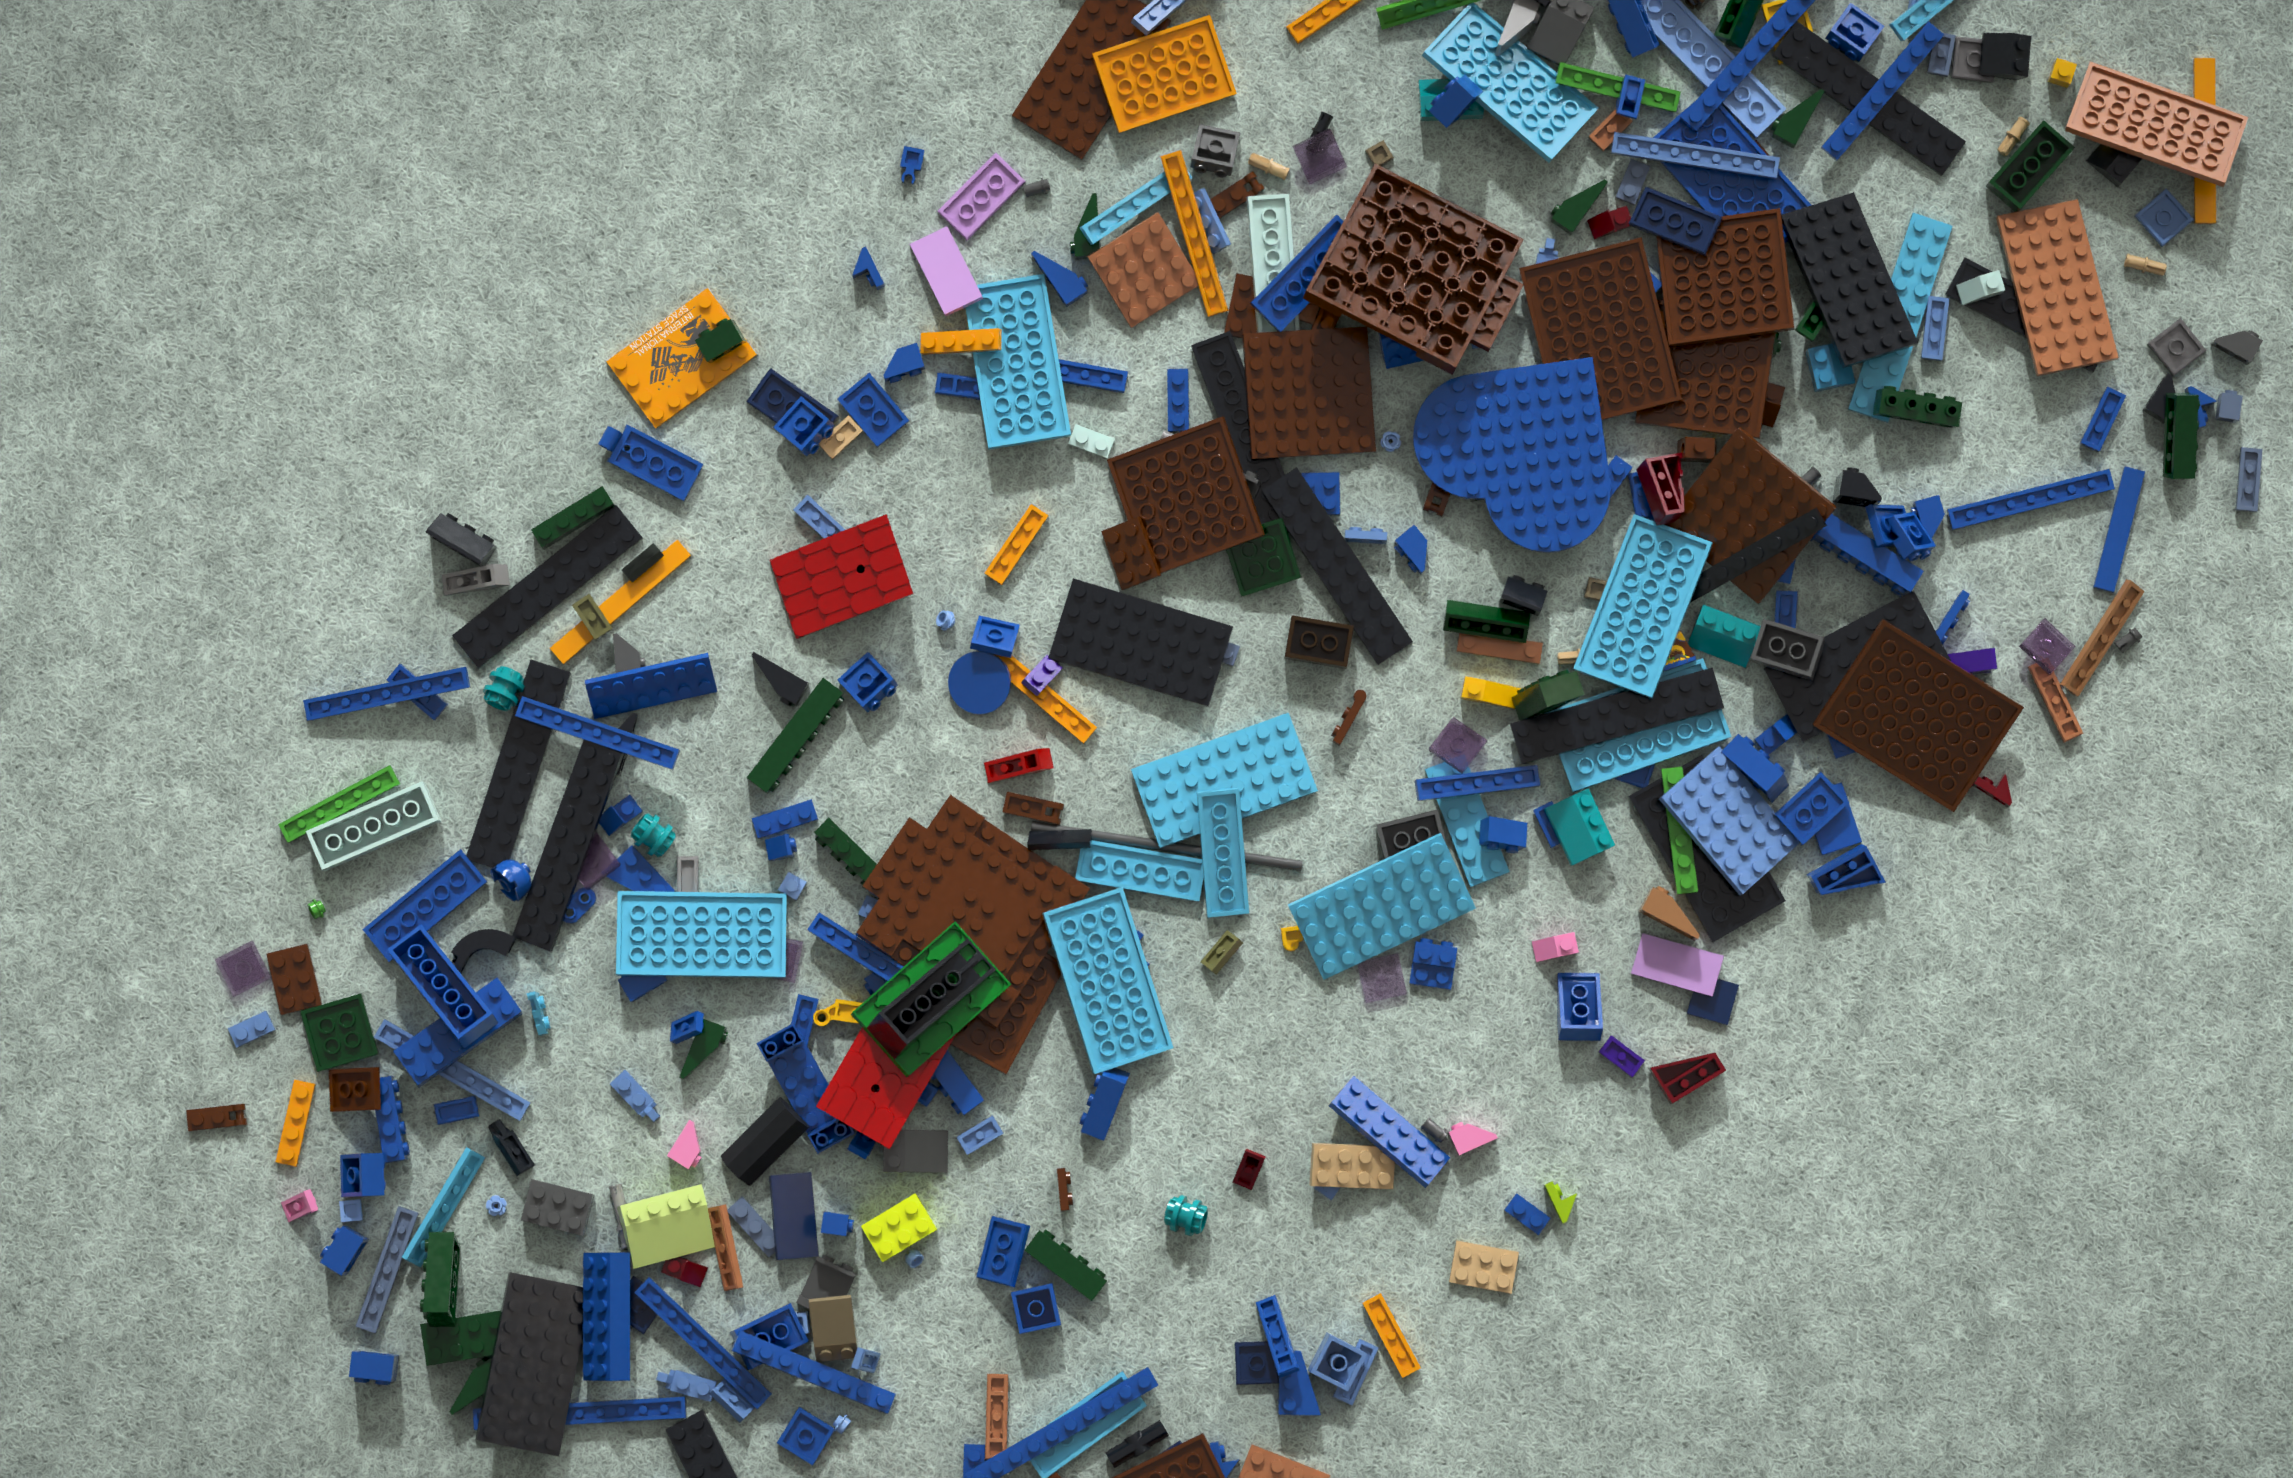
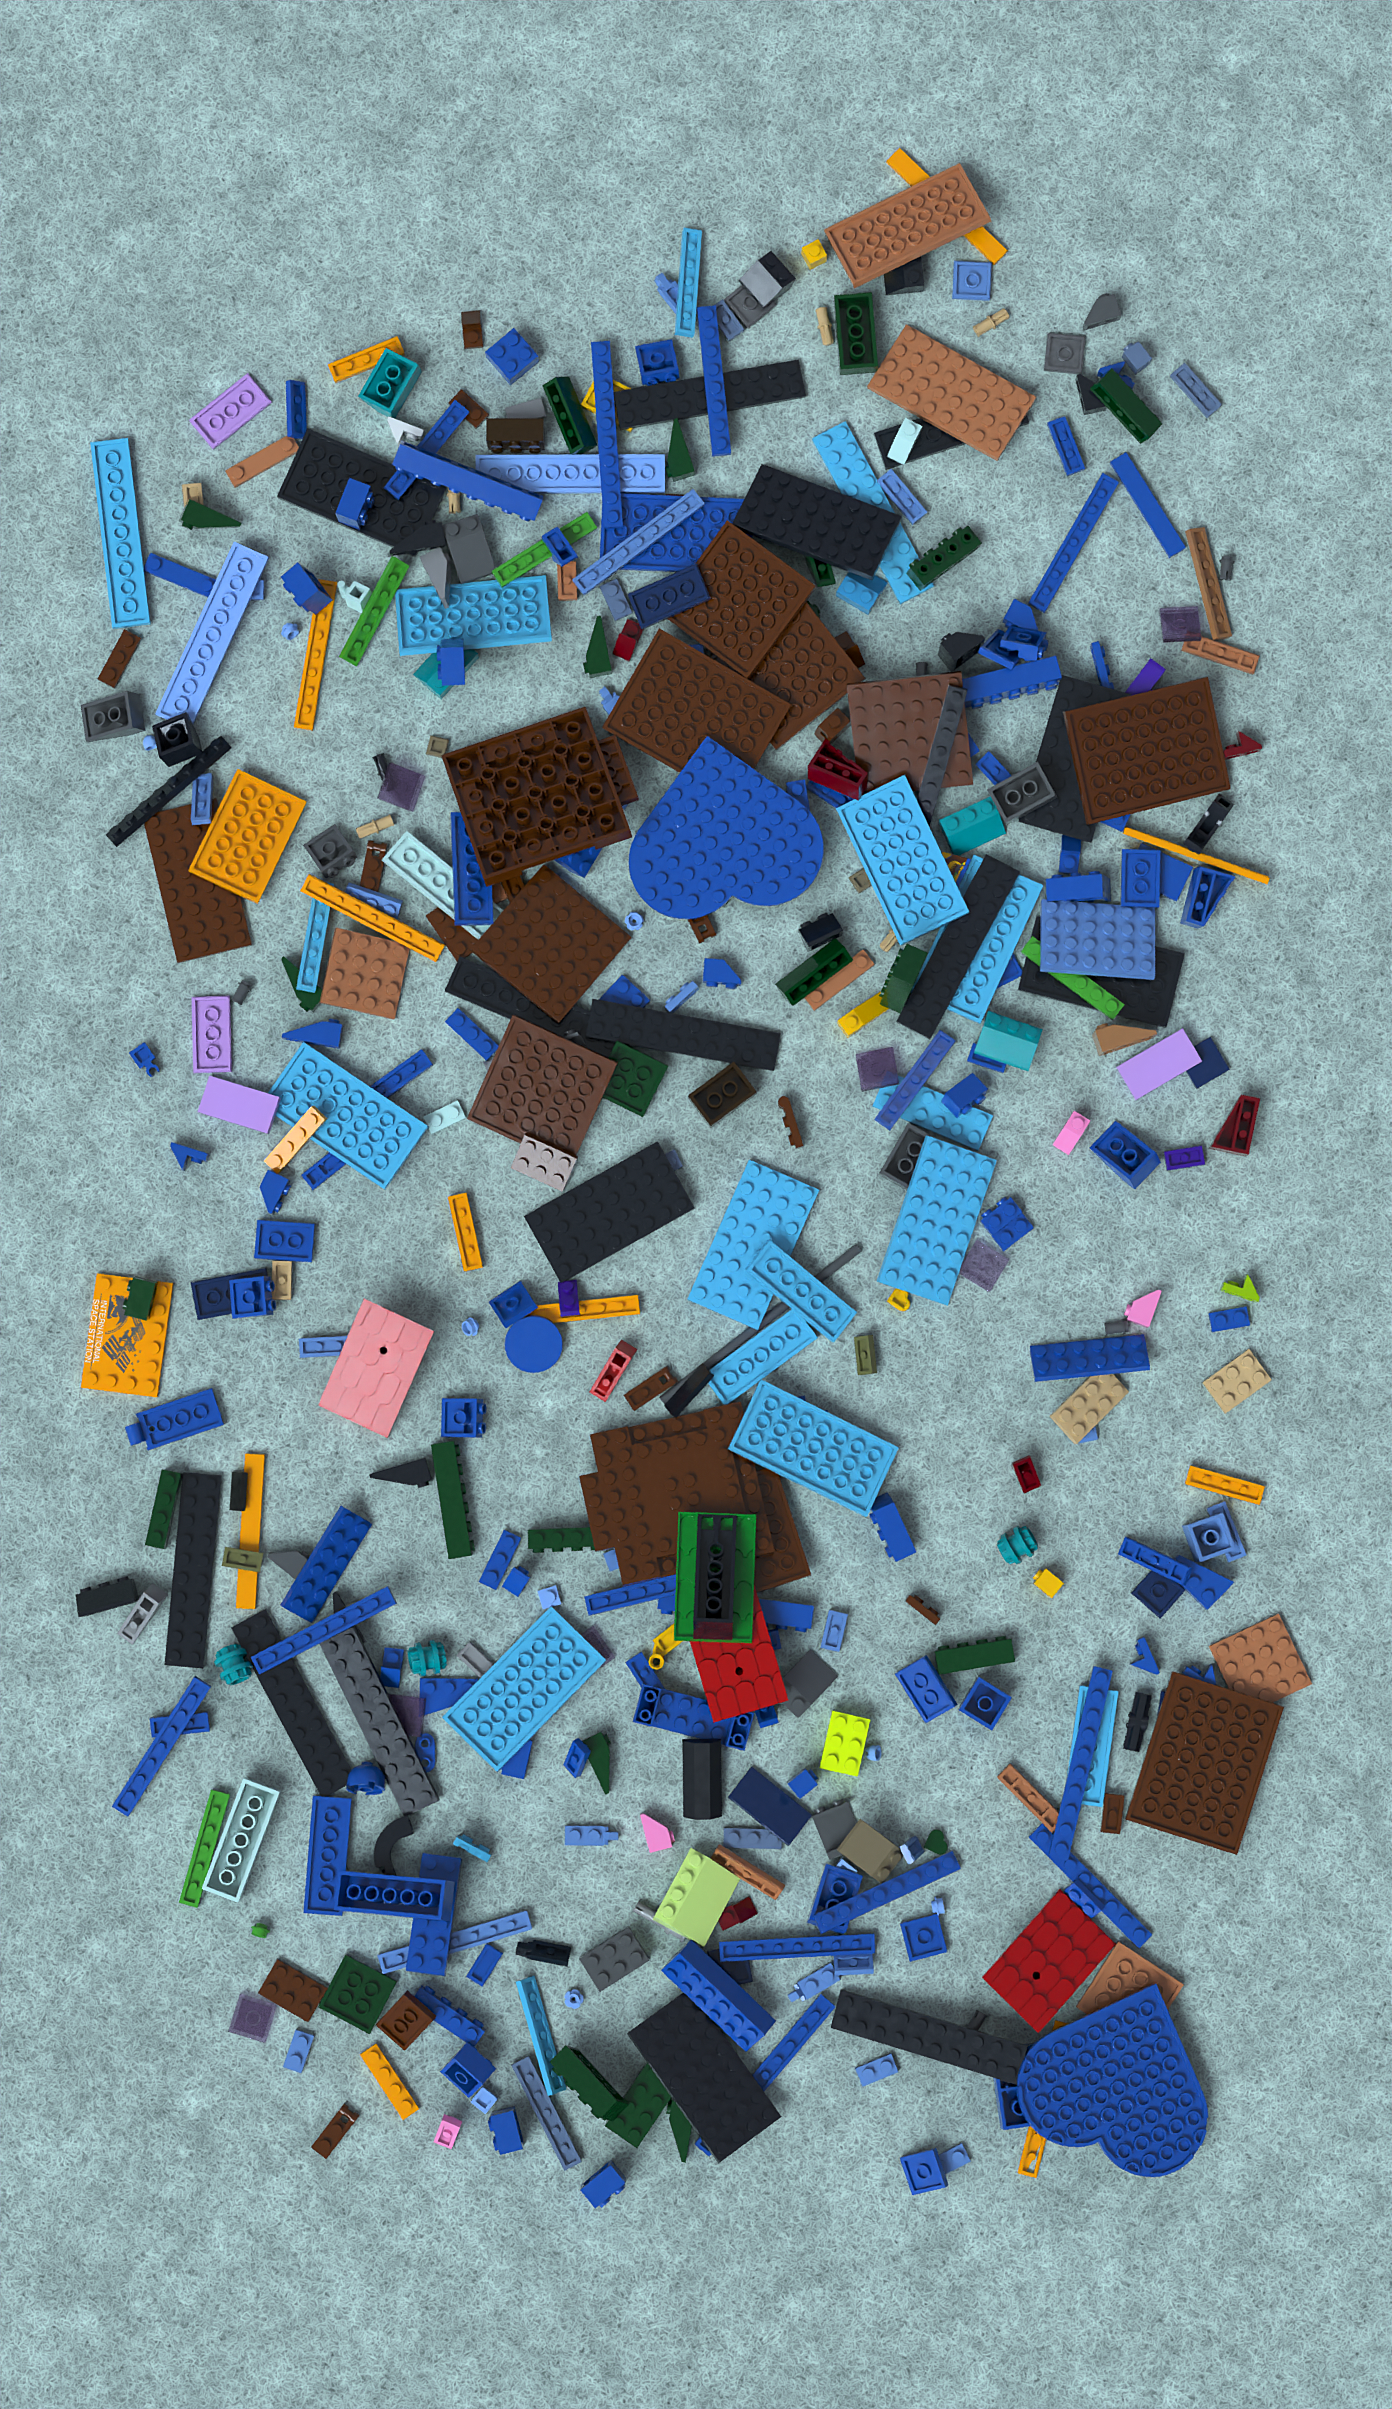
camera: 45 degrees left, 0 degrees up
(889, 1375) = (935, 1842): none -> dark green tile
(1179, 1267) = (1047, 1582): none -> yellow brick
(1192, 1407) = (1147, 1662): none -> blue slope
(1873, 835) = (1201, 857): none -> light orange tile
(1907, 821) = (1208, 824): none -> black arch

